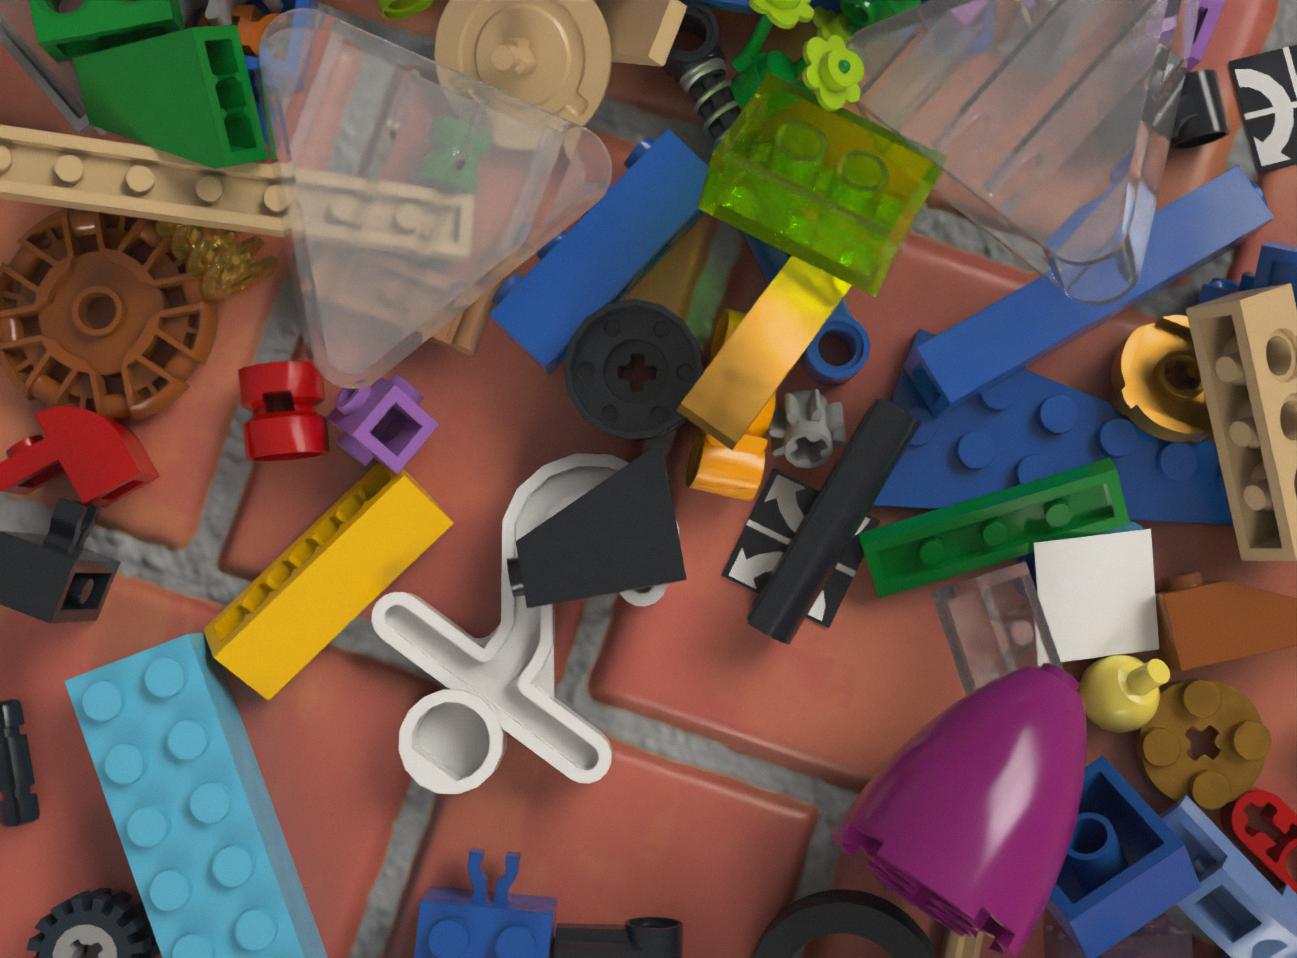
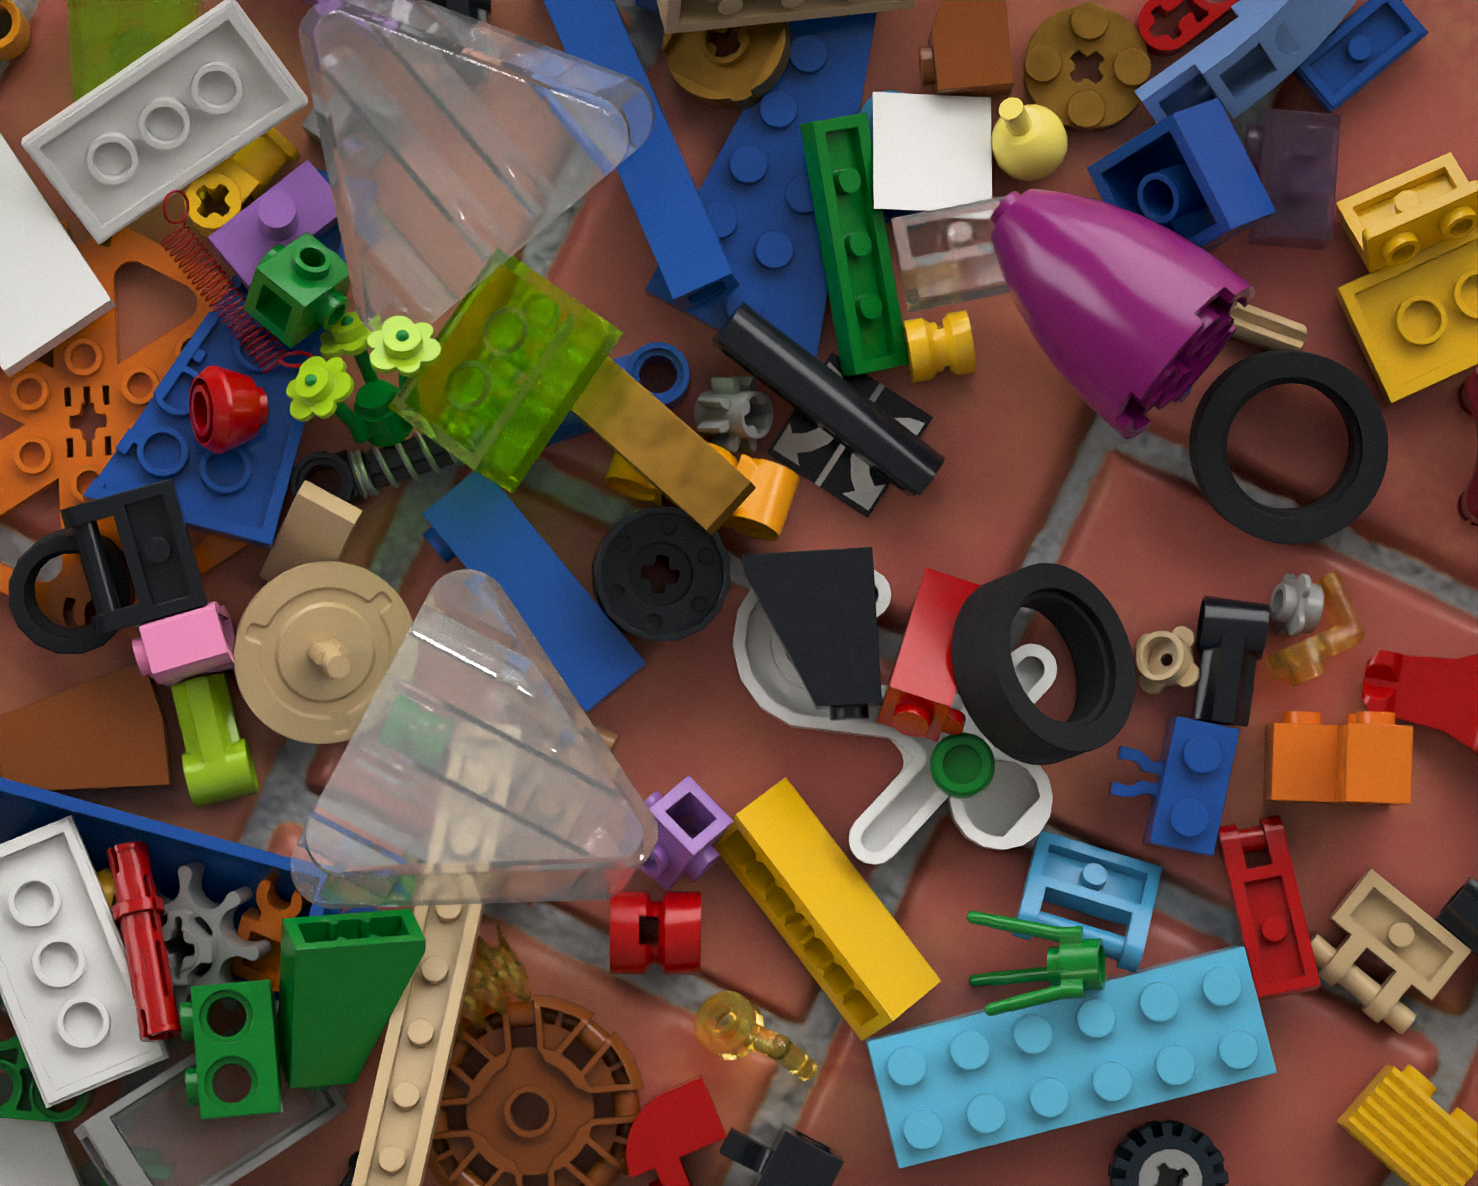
camera: 90 degrees left, 0 degrees up
(195, 513) = (747, 1034): none -> clear yellow plate
(284, 837) = (1070, 968): none -> green plant
(378, 846) = (1093, 884): none -> dark azure plate
(477, 698) = (962, 765): none -> green tile
(569, 713) = (989, 681): none -> black tyre
(584, 656) = (923, 676): none -> red brick
(613, 874) = (1152, 649): none -> tan plate
(899, 623) = (936, 346): none -> yellow wheel

